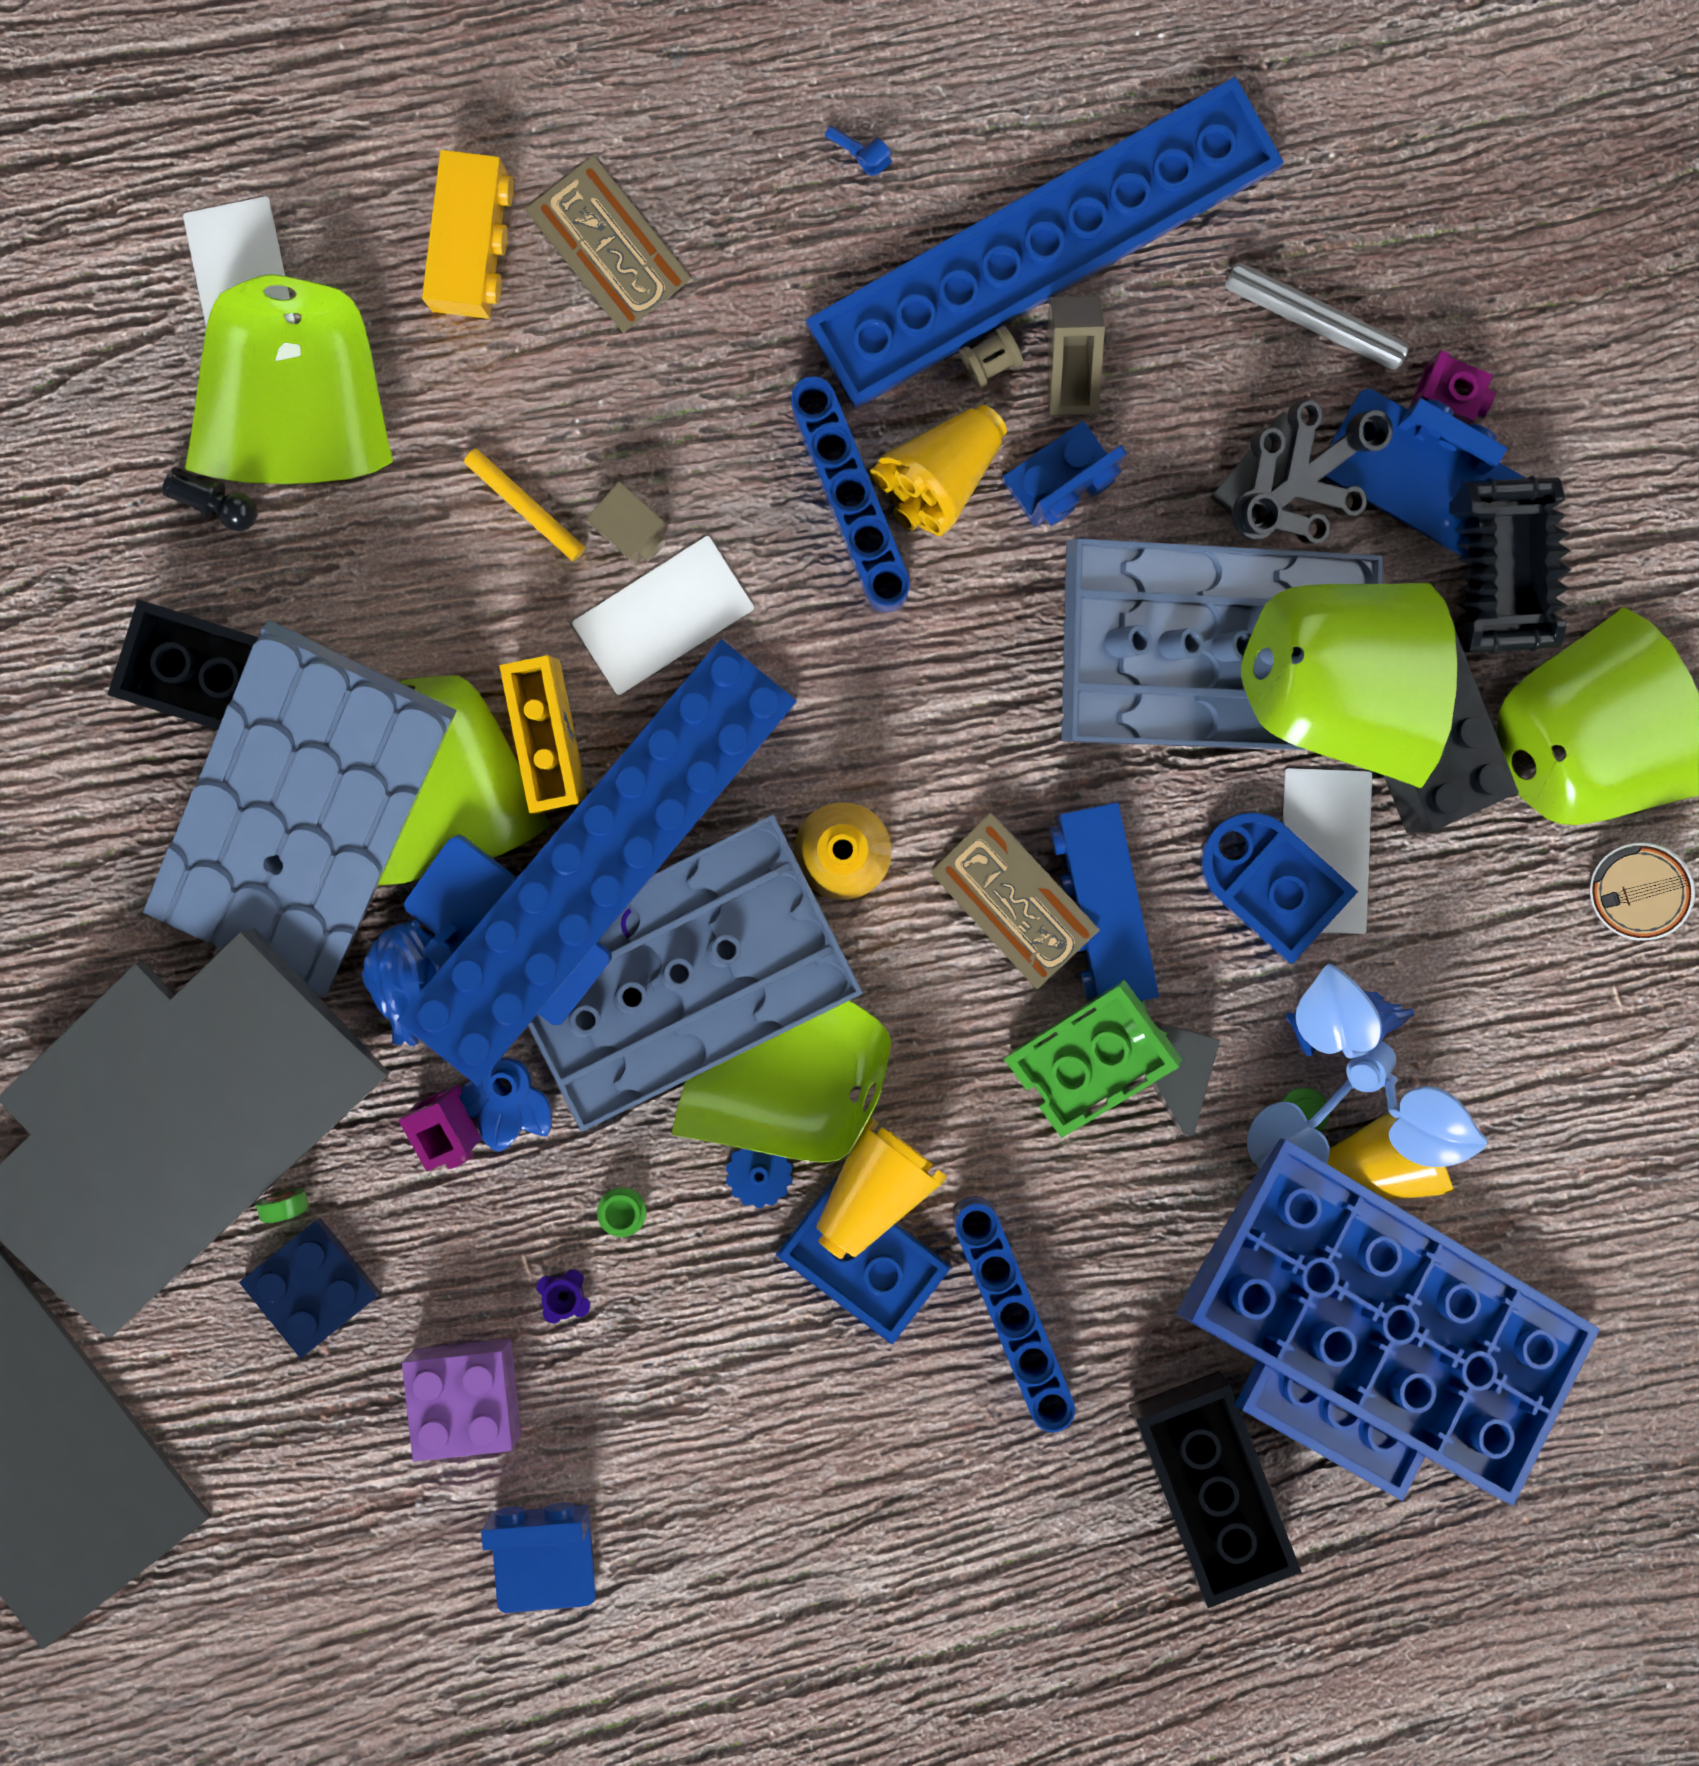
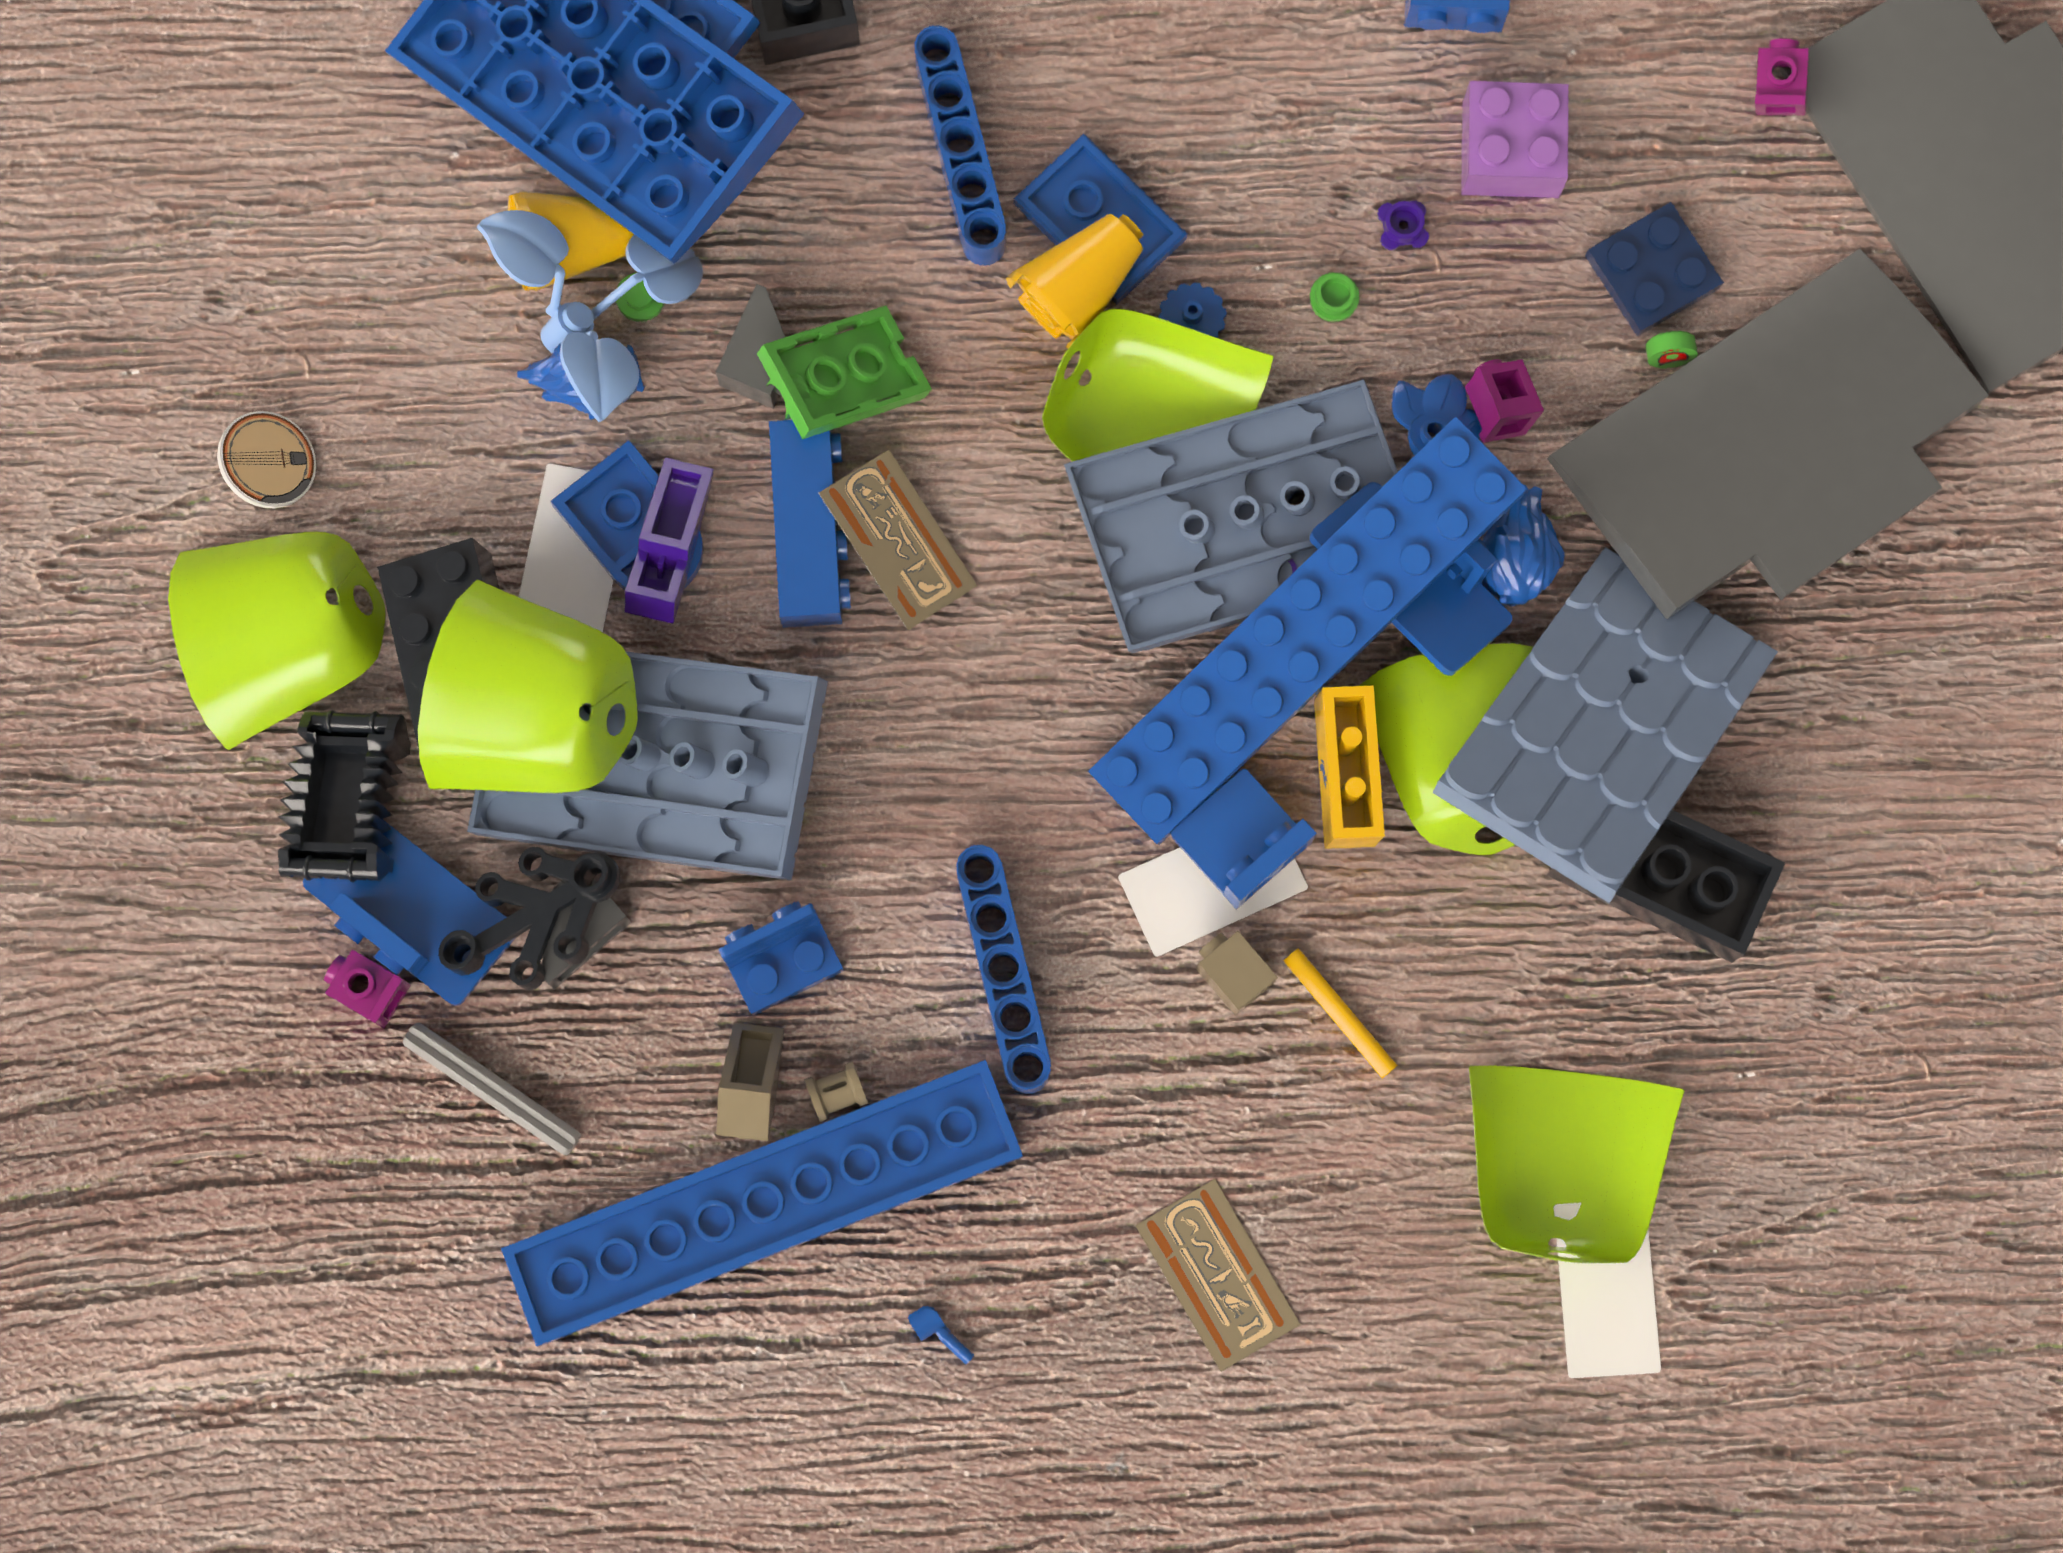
camera: 175 degrees left, 10 degrees down
(205, 1483) = (1786, 95): none -> magenta brick
(234, 510) = (1639, 1046): black pin -> none
(467, 234) = (1362, 1296): yellow brick -> none
(637, 653) = (1241, 838): none -> blue bracket
(845, 877) = (1063, 618): yellow cone -> none
(940, 469) = (905, 979): yellow cone -> none
(1238, 865) = (668, 540): none -> dark purple slope

